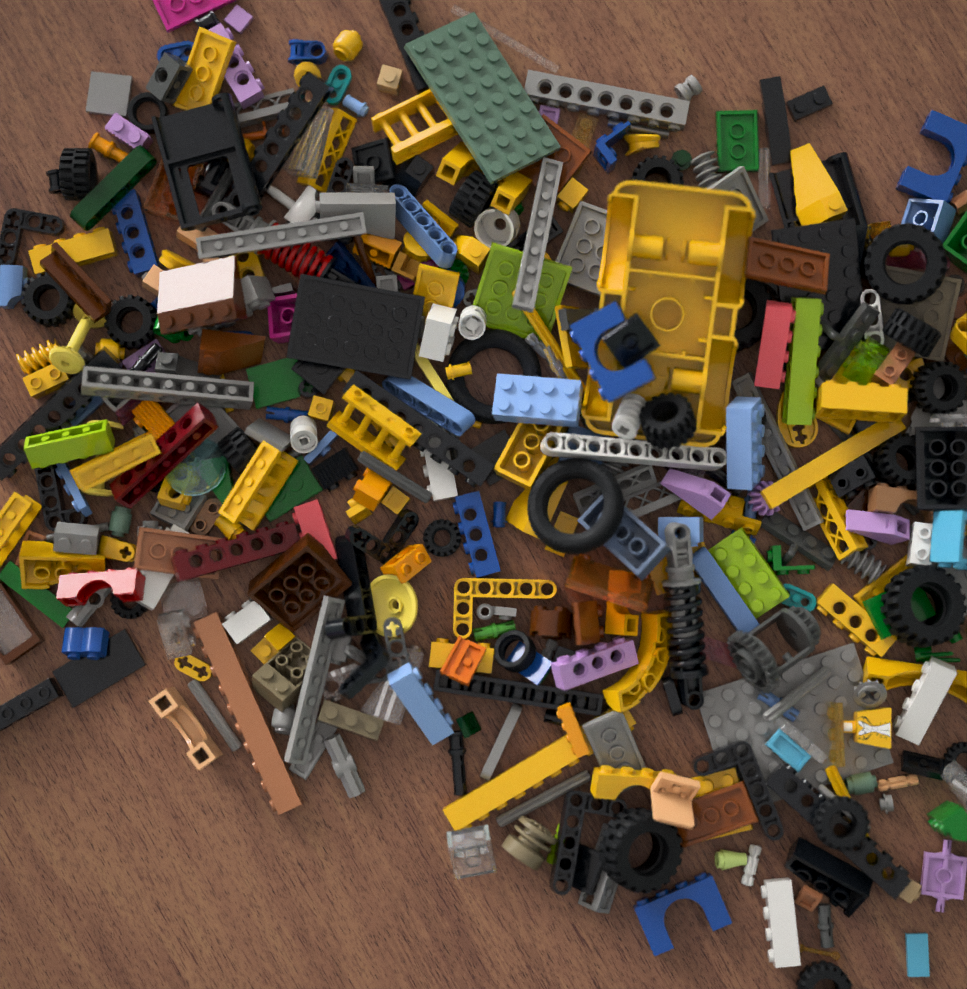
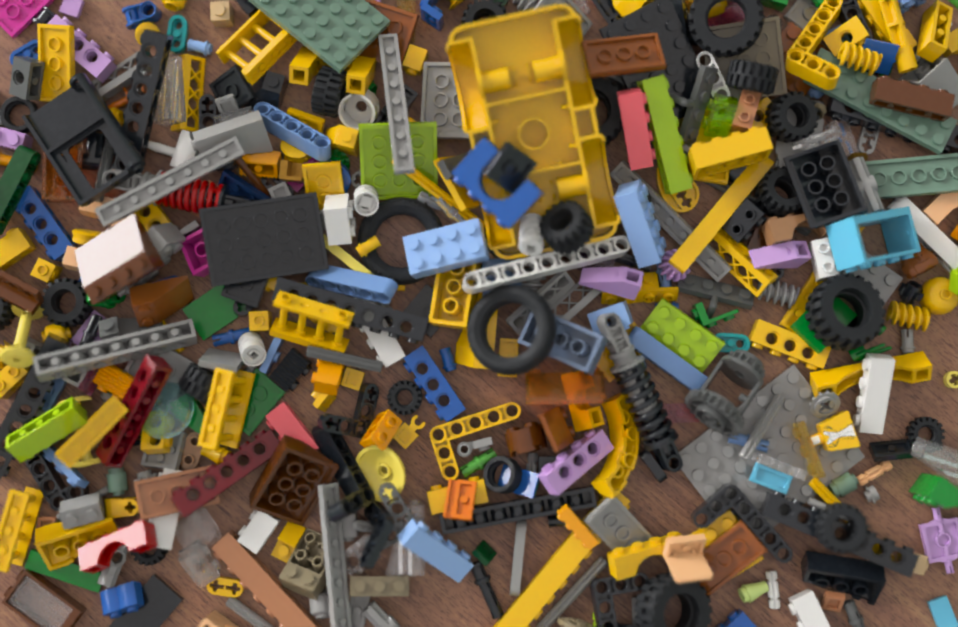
camera: 20 degrees left, 0 degrees up
(121, 282) = (46, 270): none -> yellow brick
(431, 576) = (406, 433): none -> yellow plate

